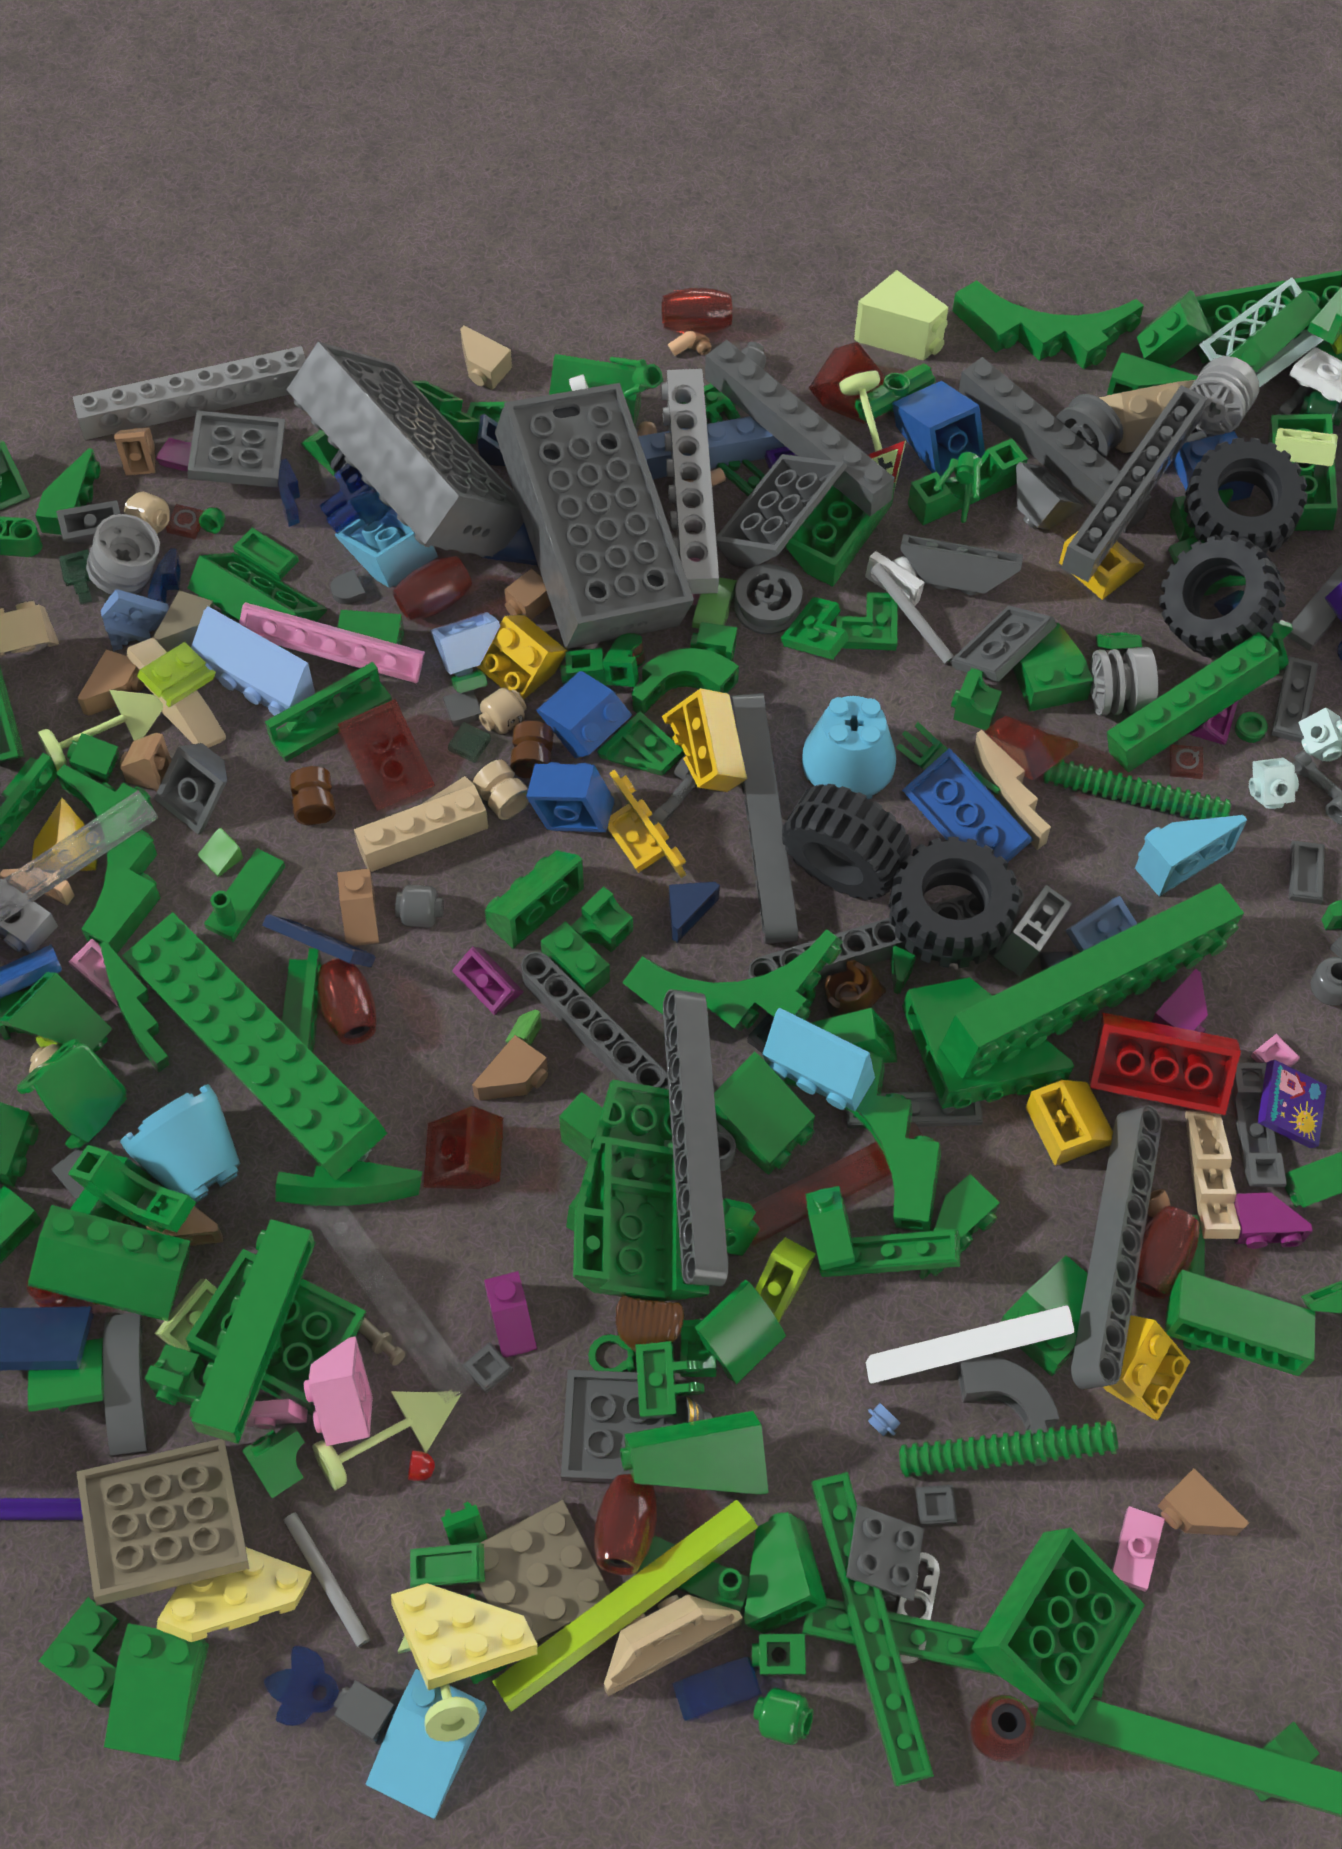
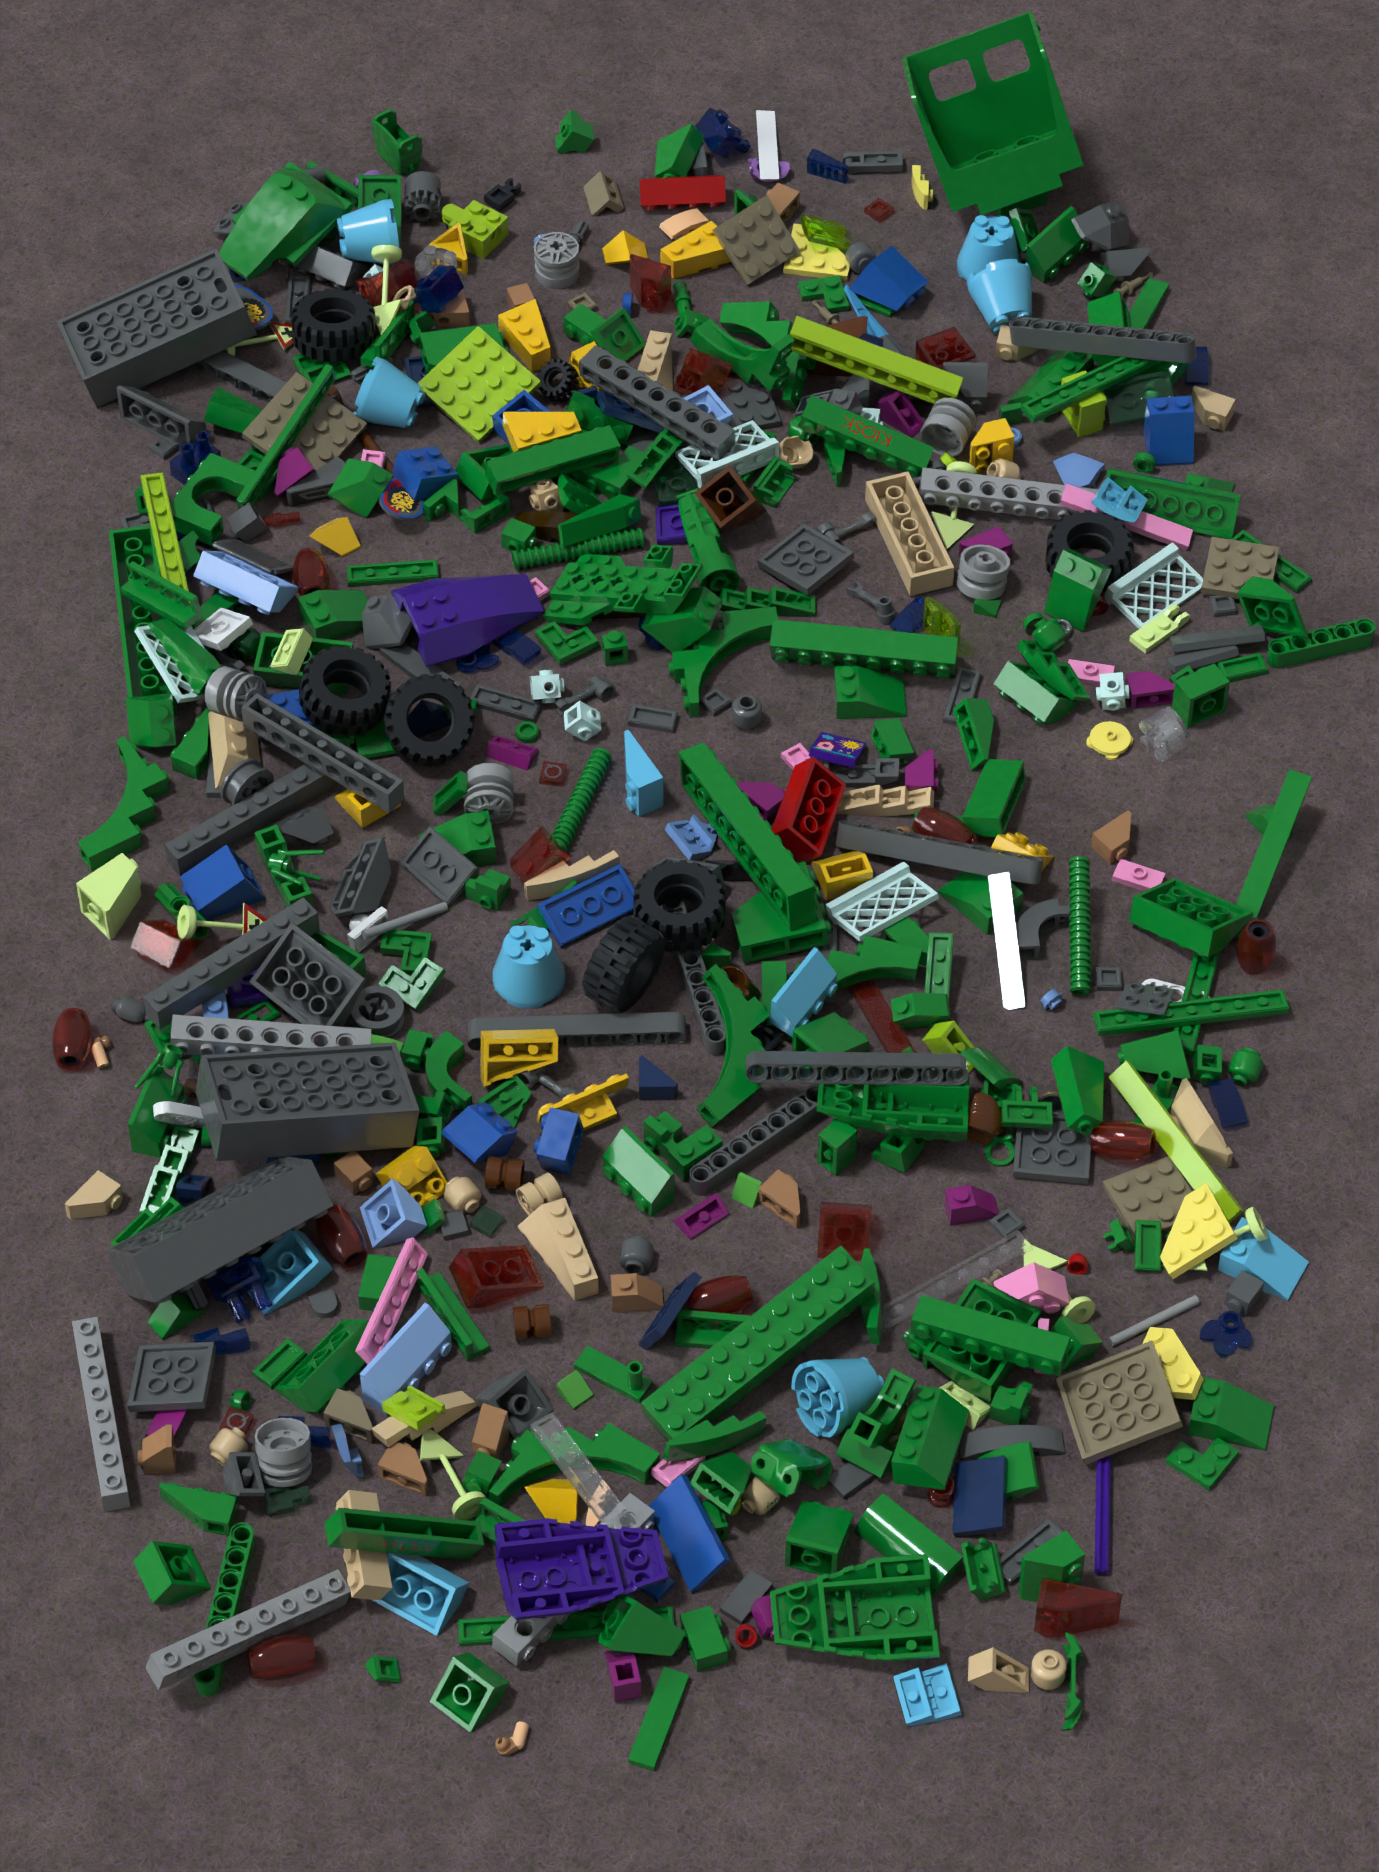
camera: 85 degrees left, 10 degrees down
(1033, 1159) = (877, 893): none -> light aqua fence
(1193, 702) = (514, 754): green brick -> none

